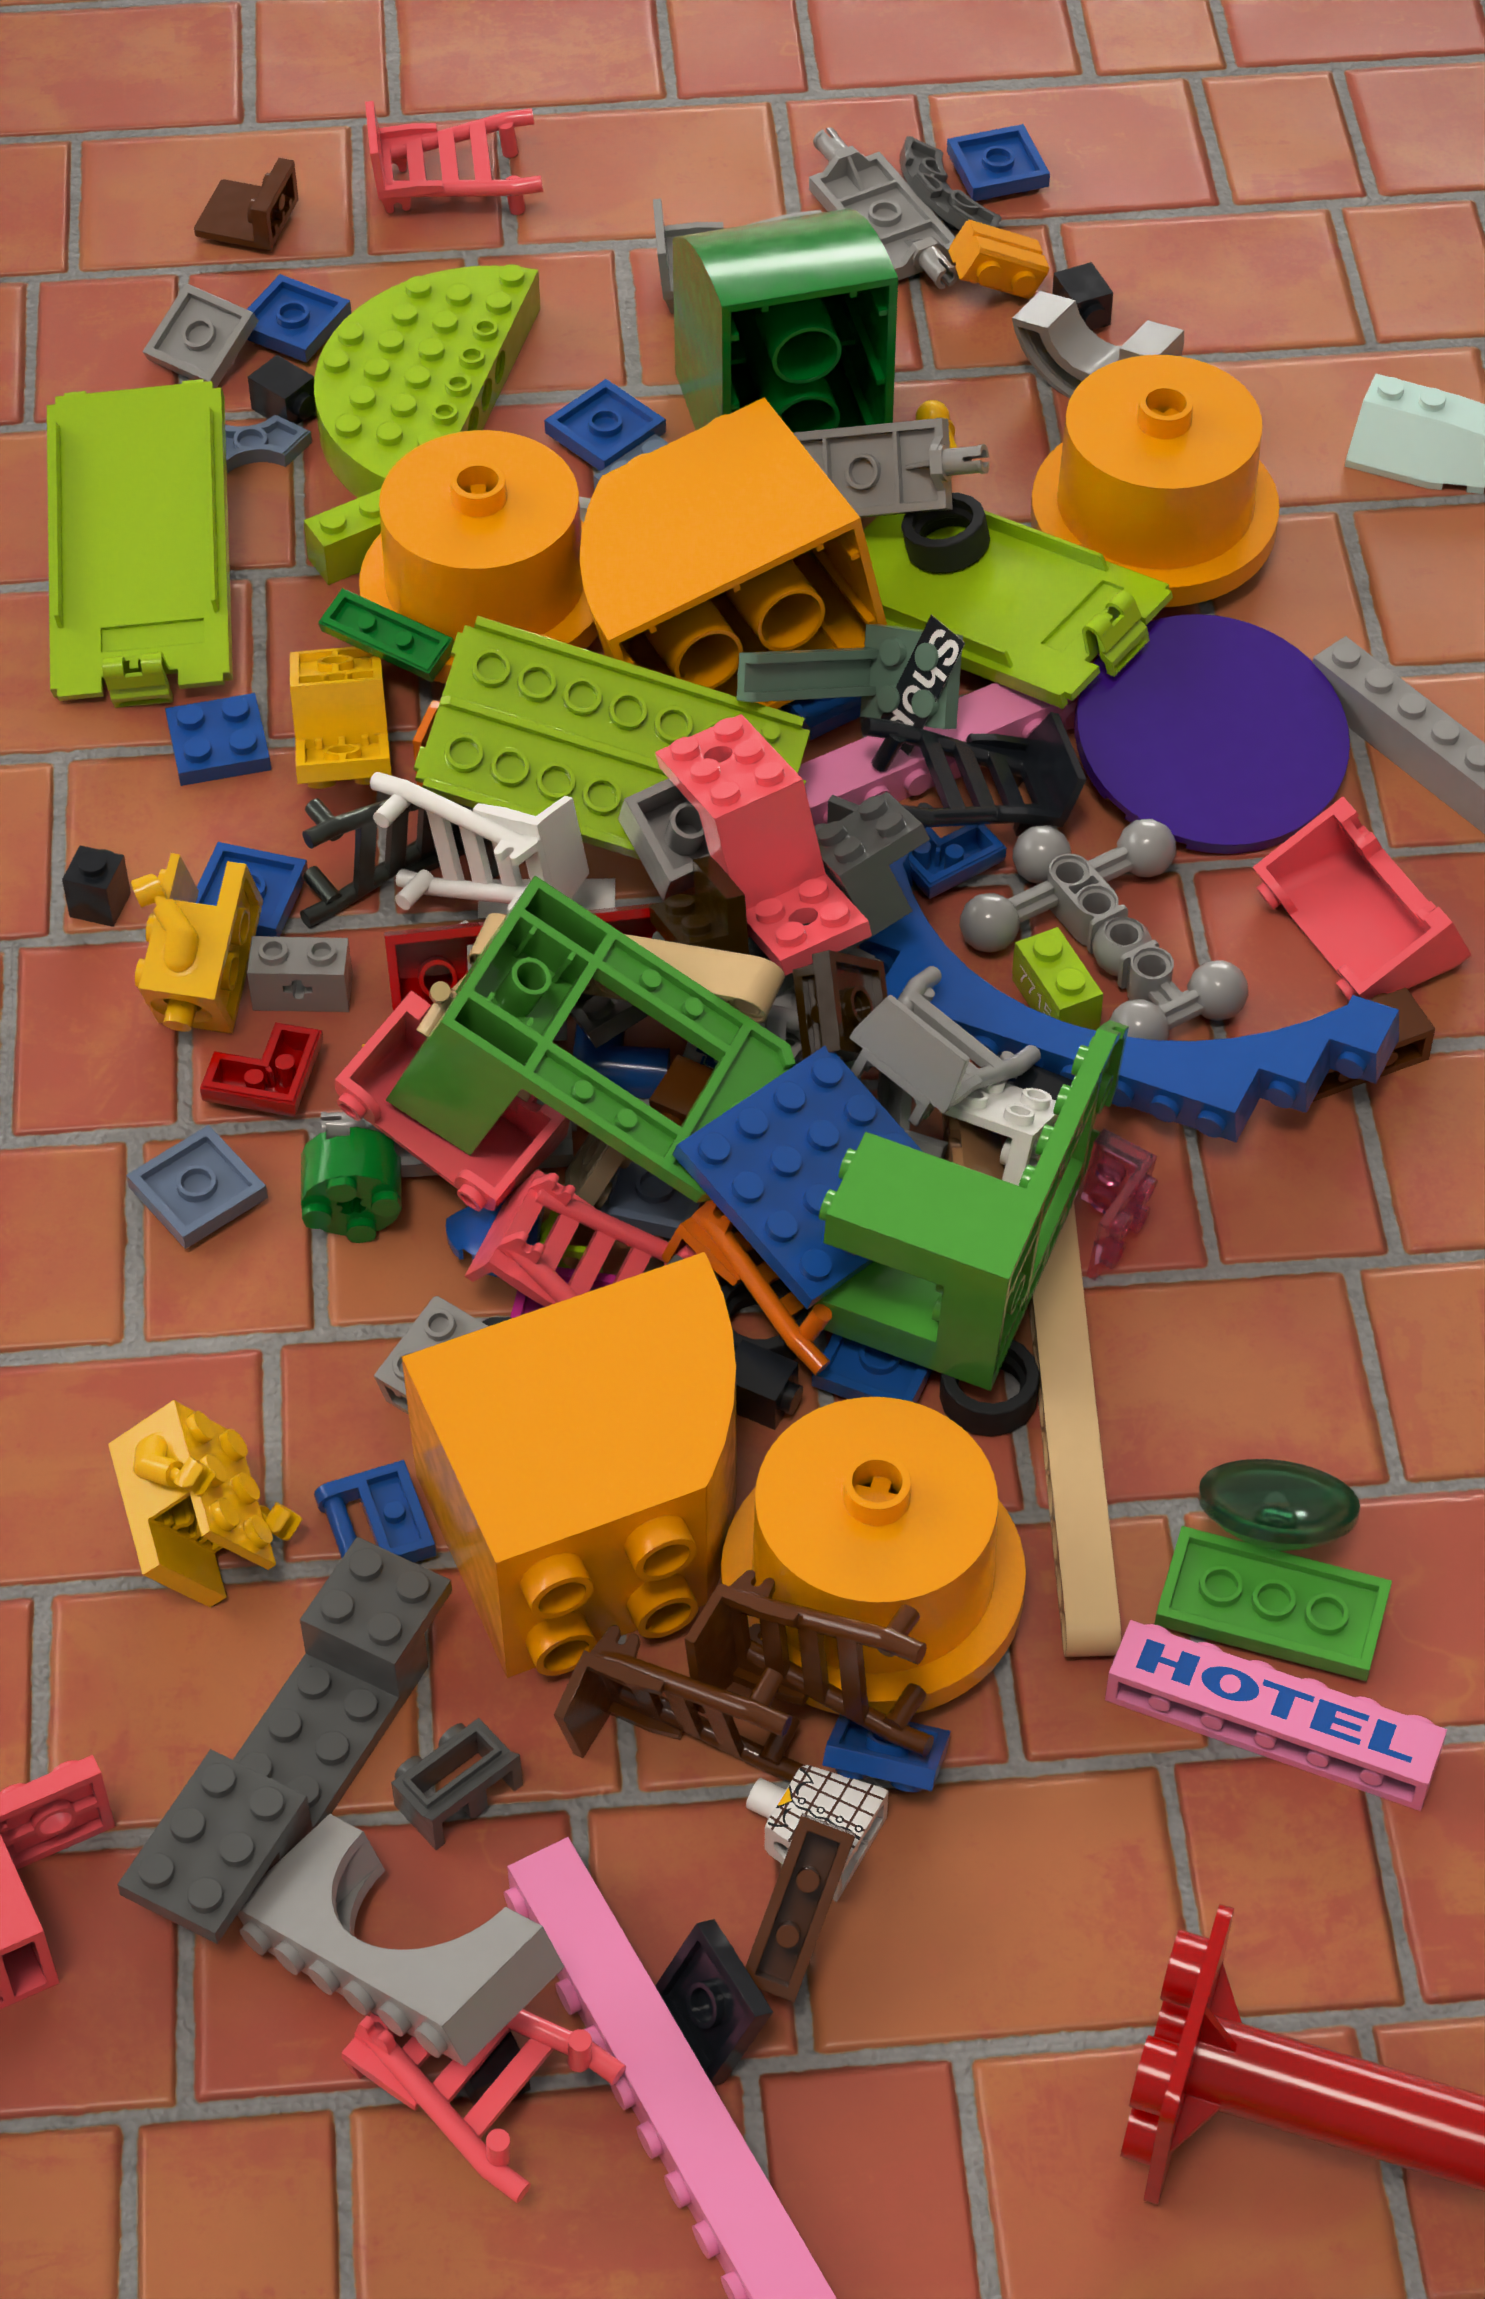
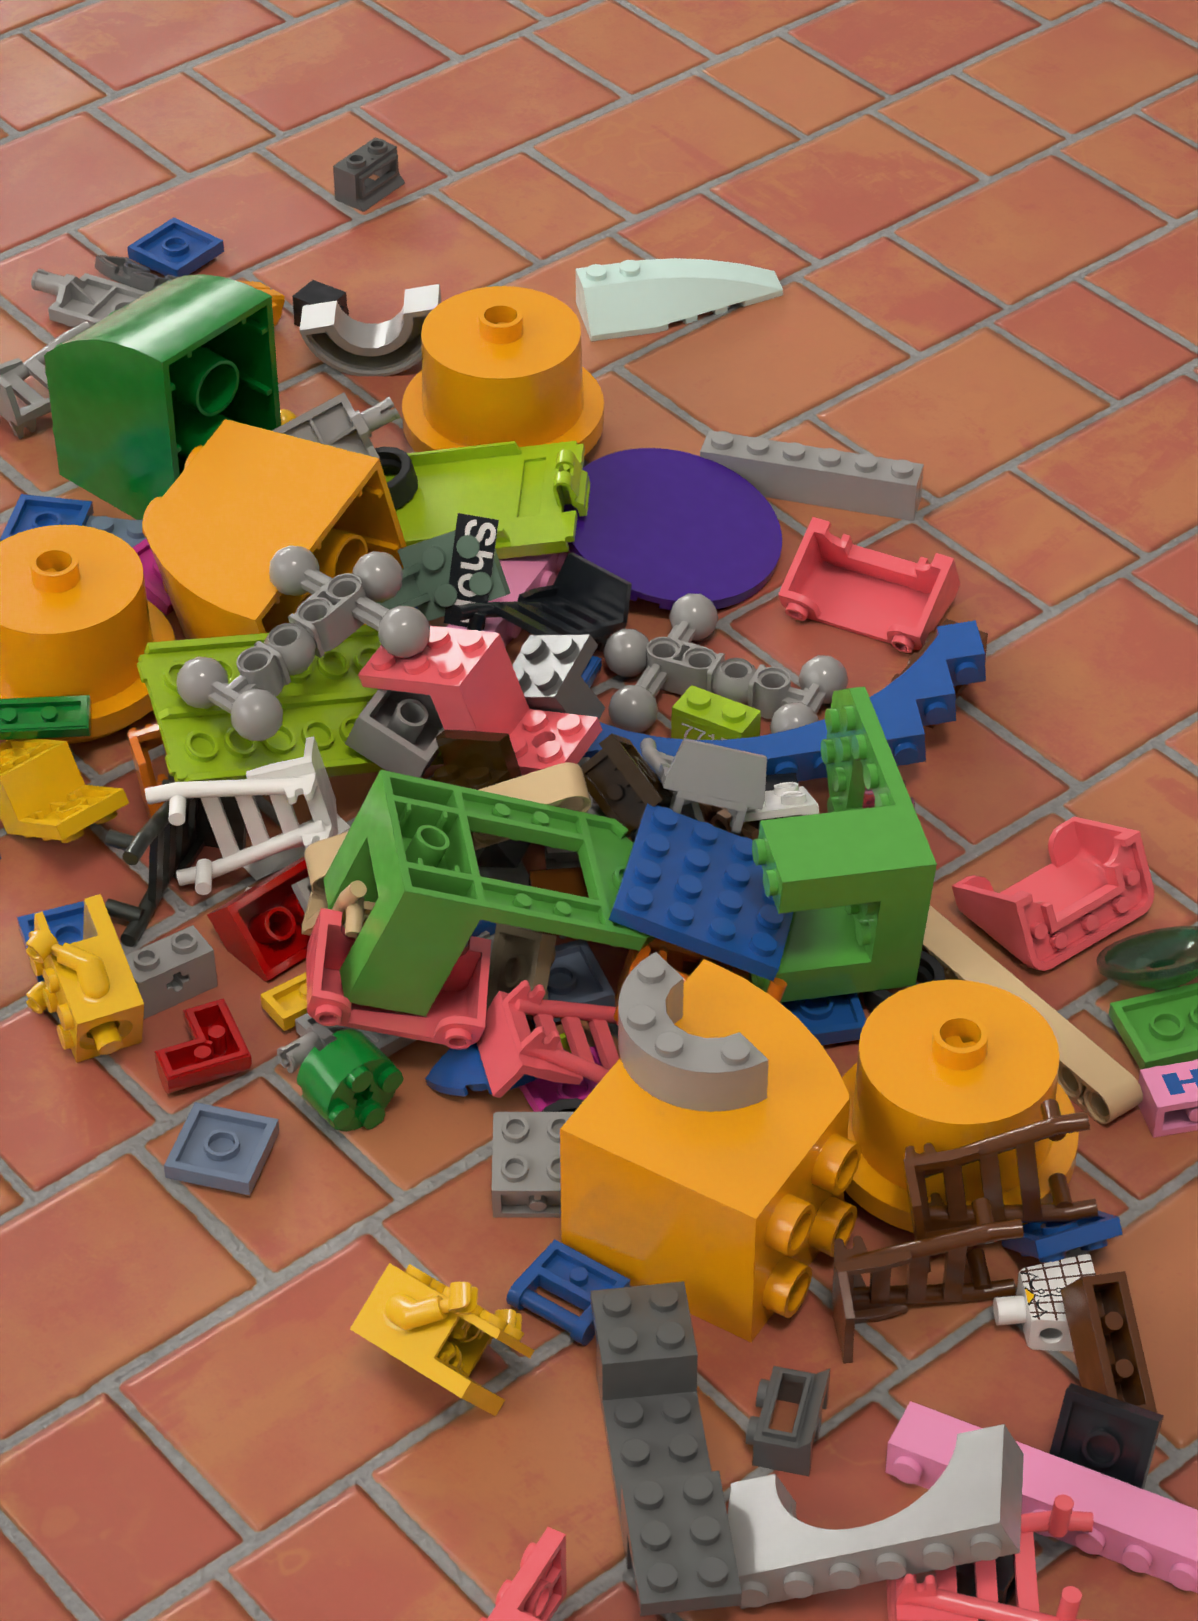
camera: 35 degrees left, 10 degrees down
(551, 1302) = (679, 1065): none -> light grey brick
(639, 679) = (319, 625): none -> light grey piece
(1244, 1385) = (1086, 893): none -> coral windscreen
(1261, 147) = (352, 175): none -> dark grey window

